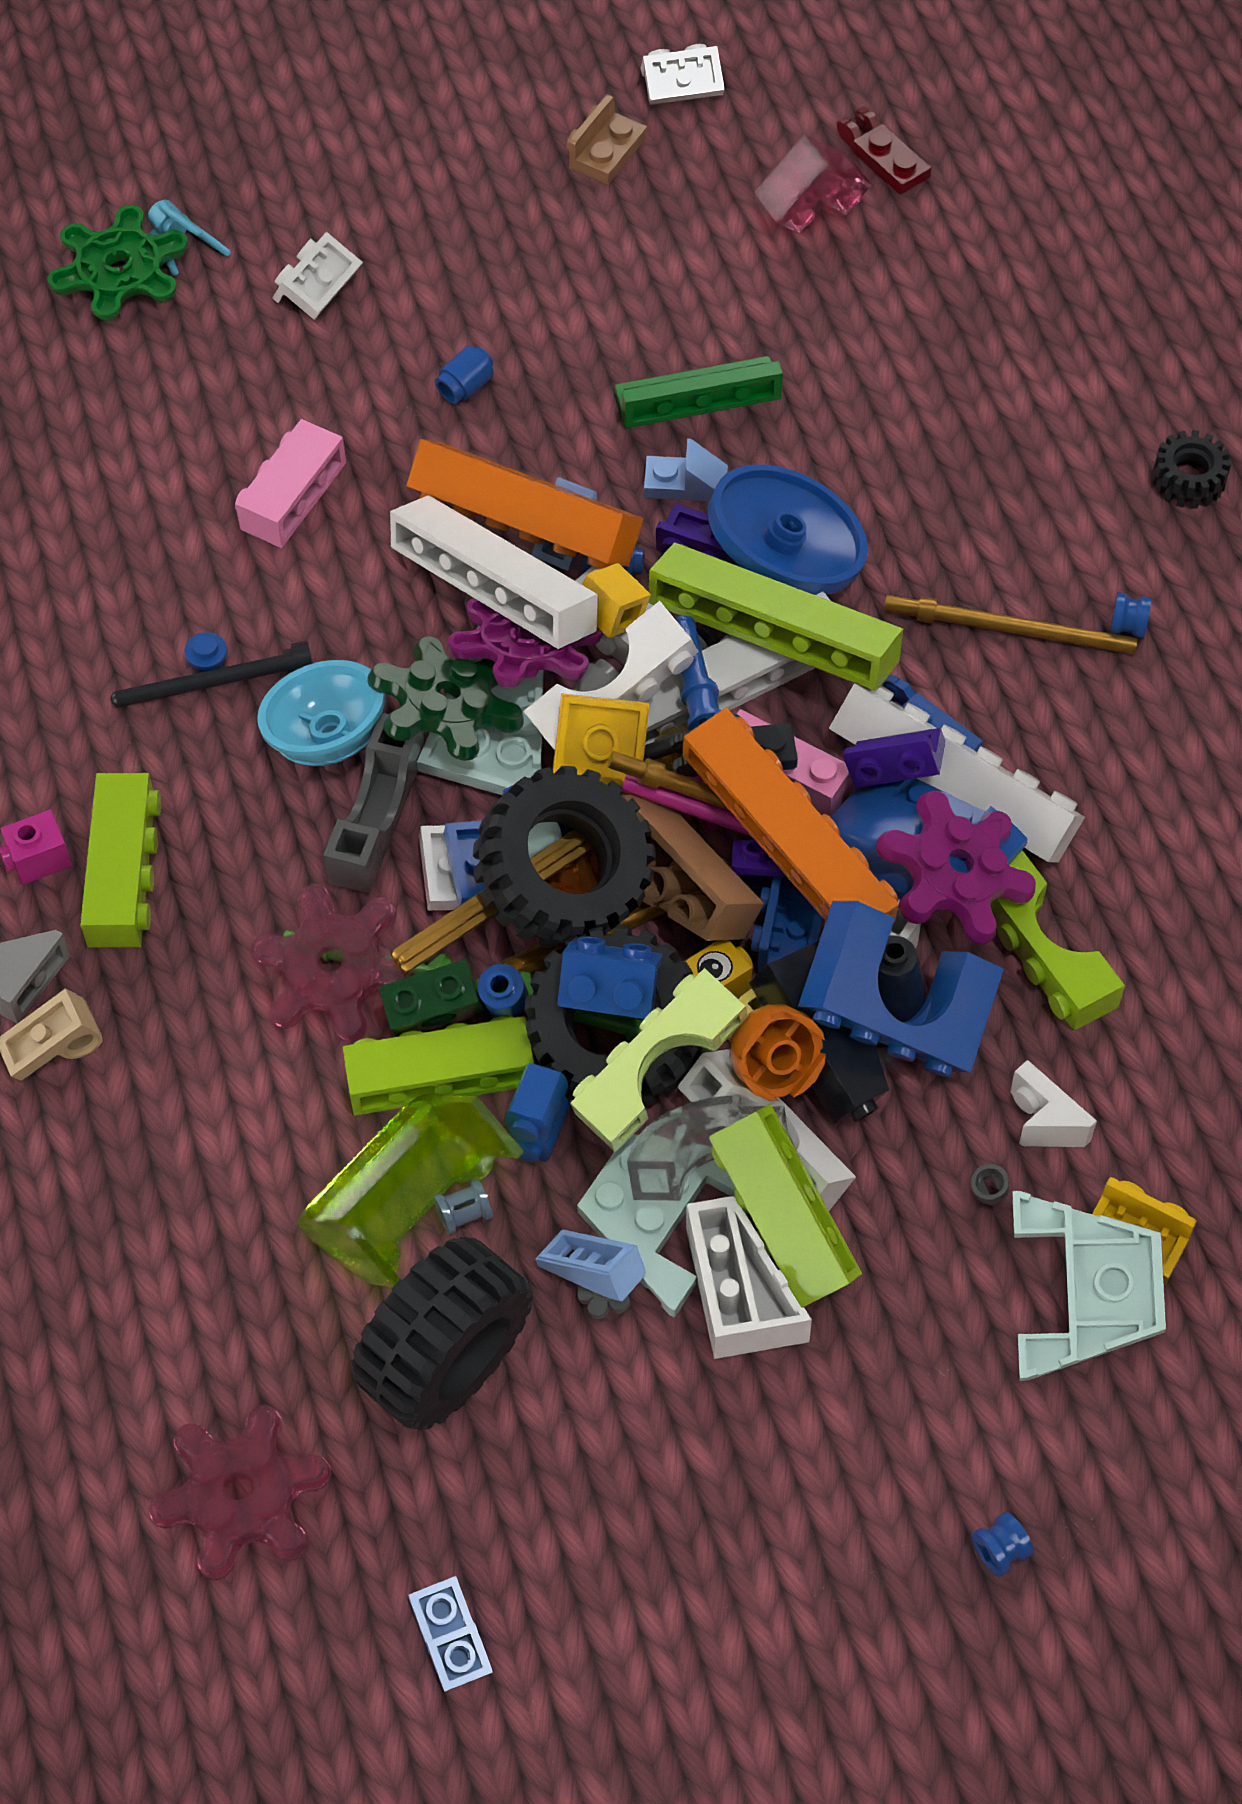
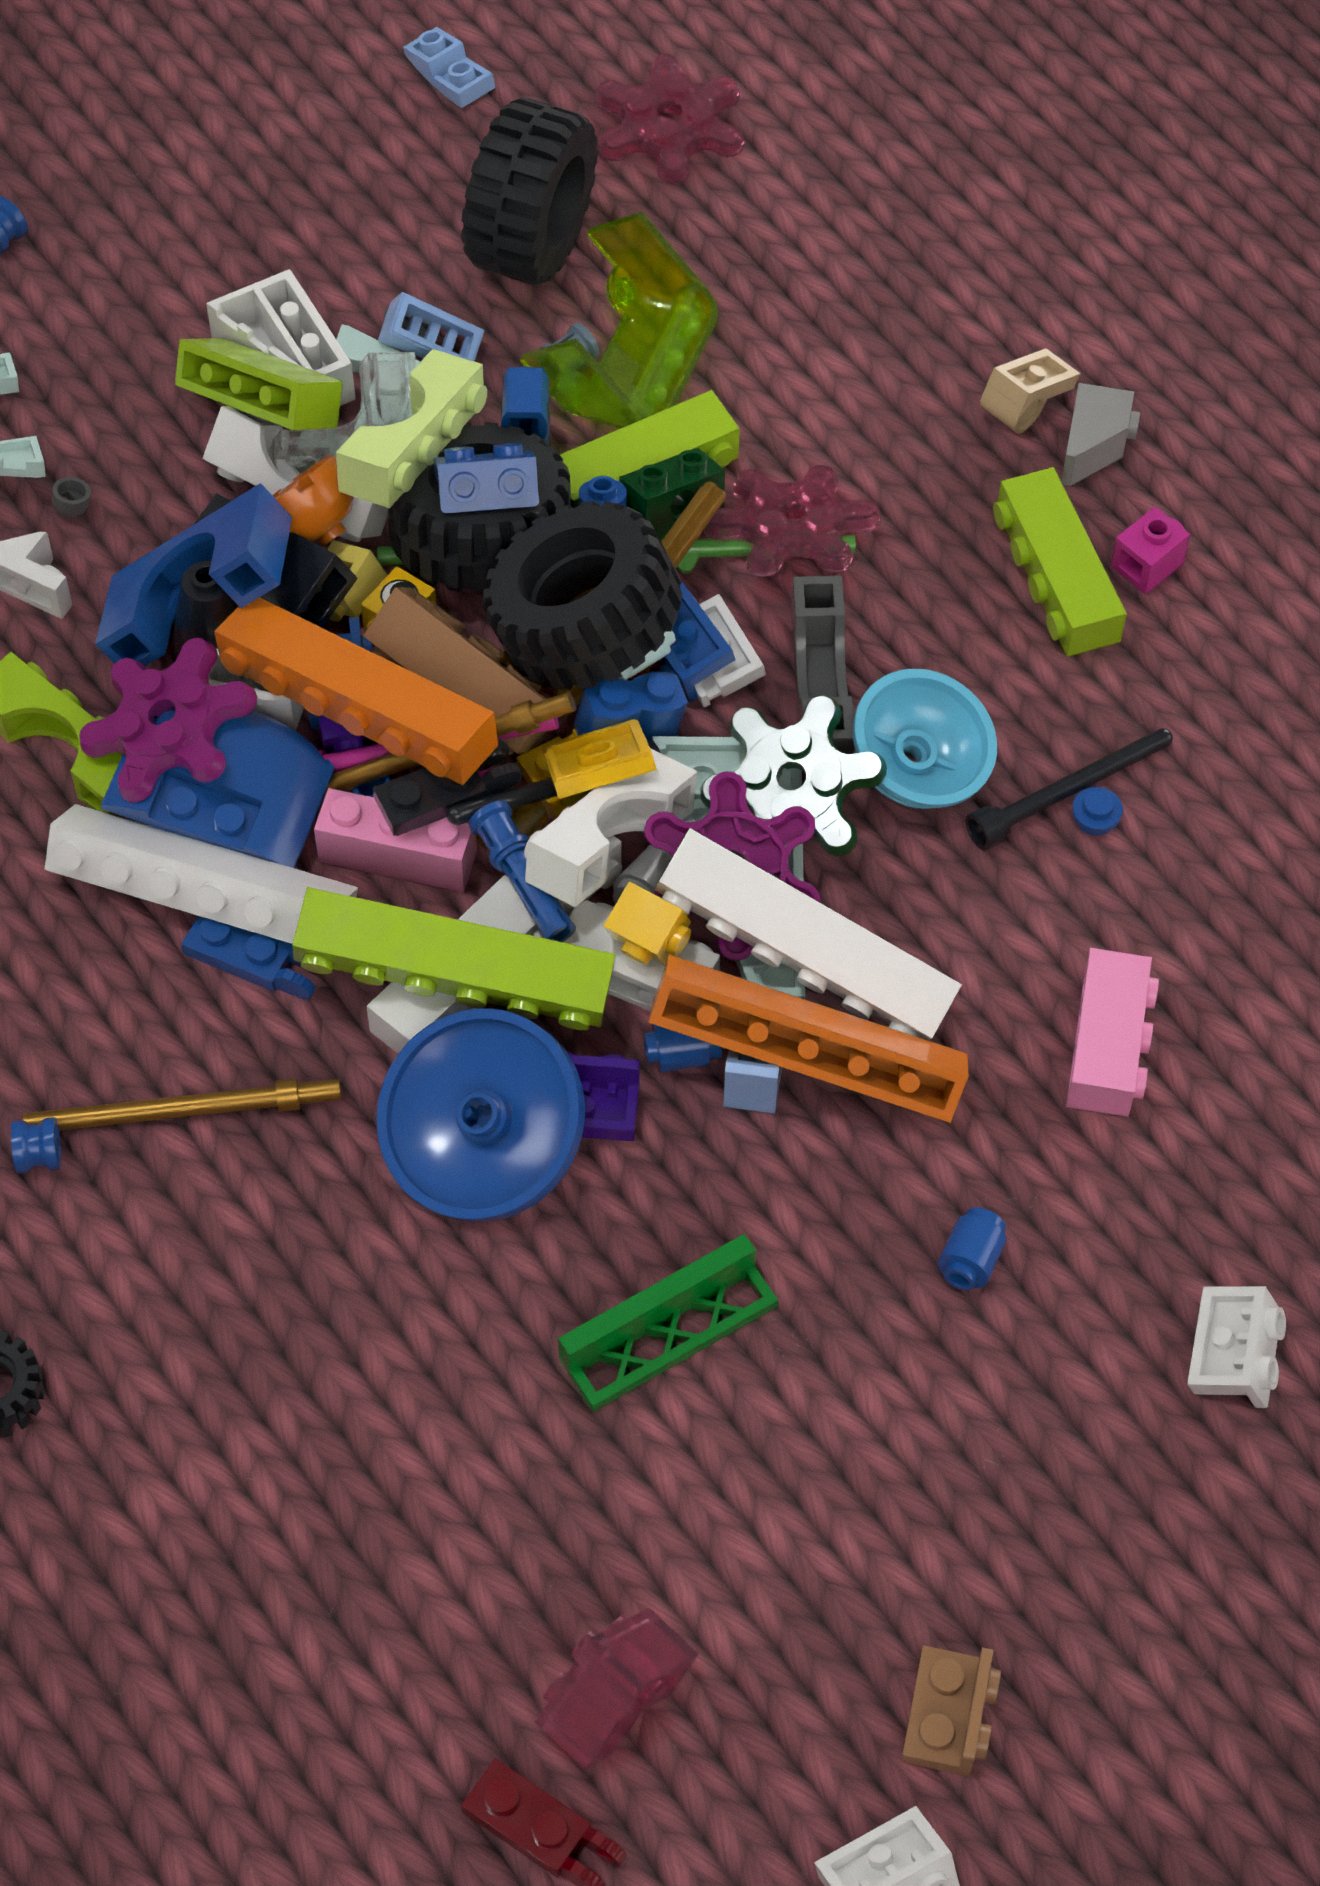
camera: 160 degrees right, 0 degrees up
(684, 478) = (635, 1194): light blue slope -> none
(895, 757) = (265, 832): dark purple bracket -> none

